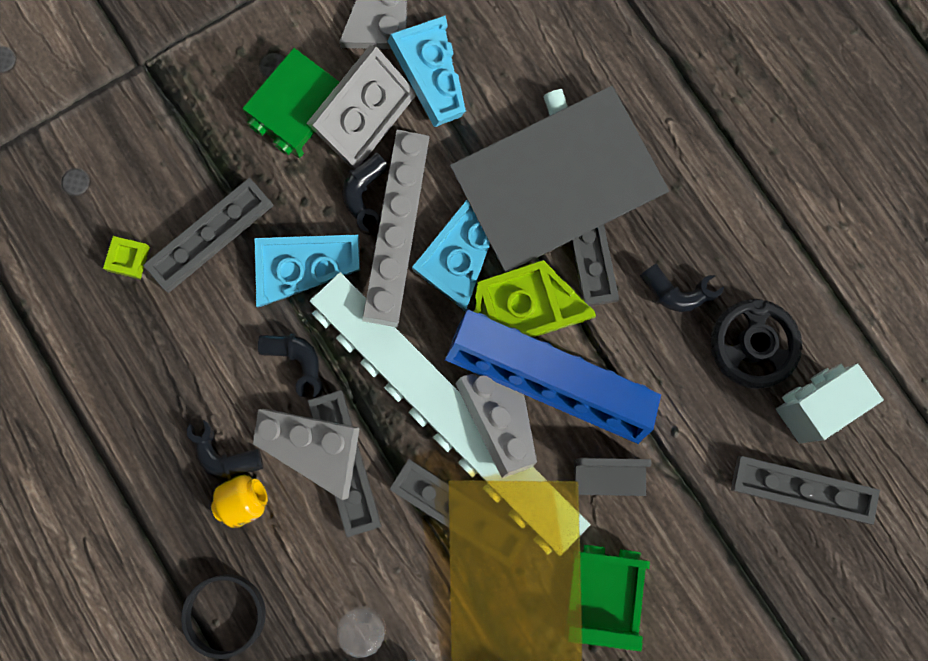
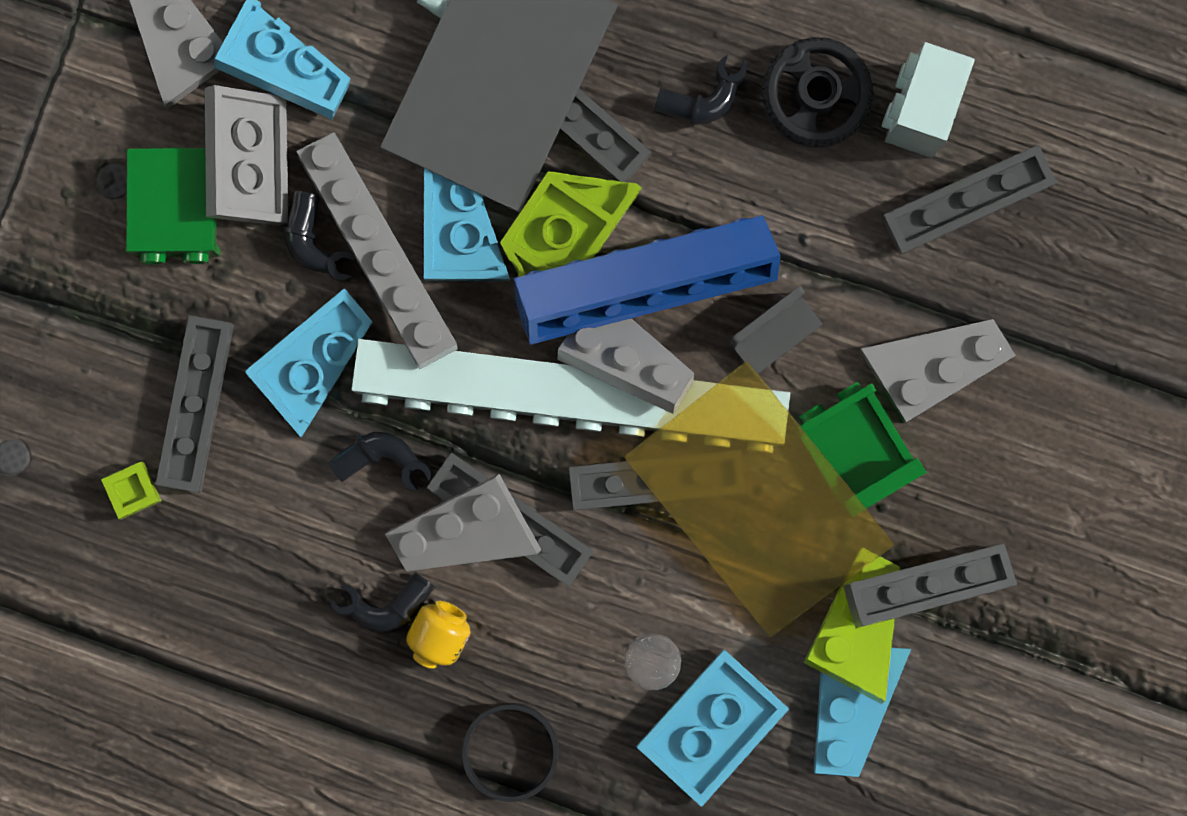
camera: 35 degrees left, 5 degrees up
(700, 582) = (936, 364): none -> light grey wing

